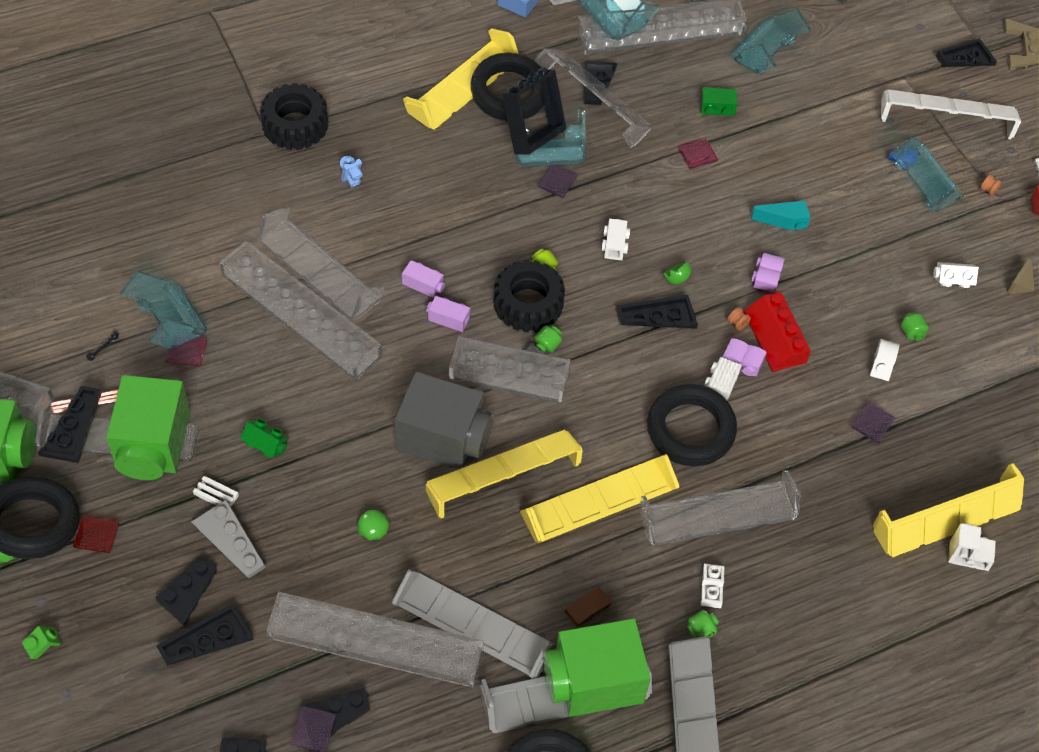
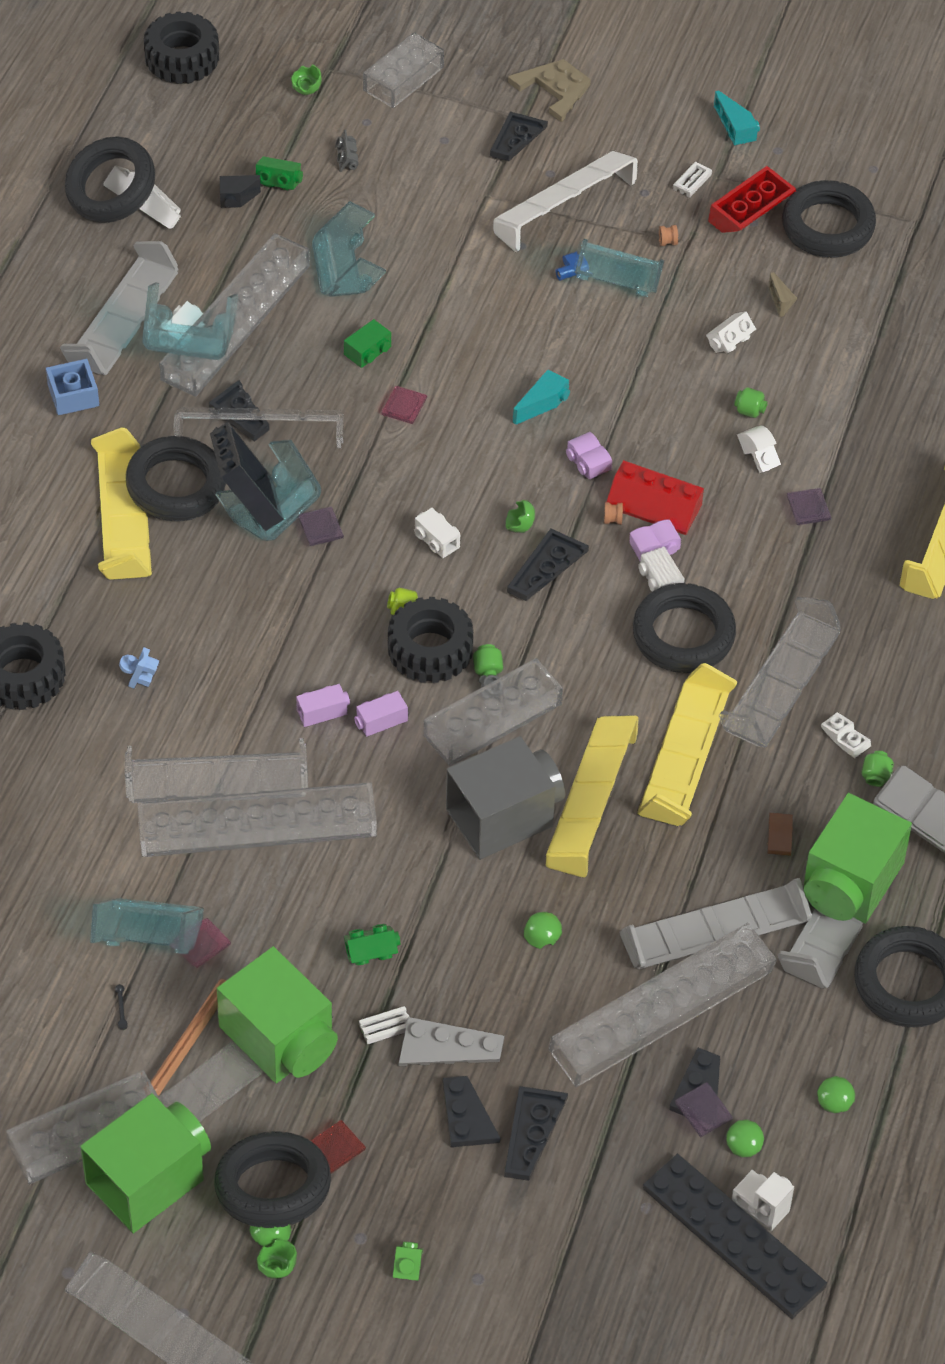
camera: 45 degrees left, 5 degrees down
(73, 428) = (201, 1086): black wing -> none

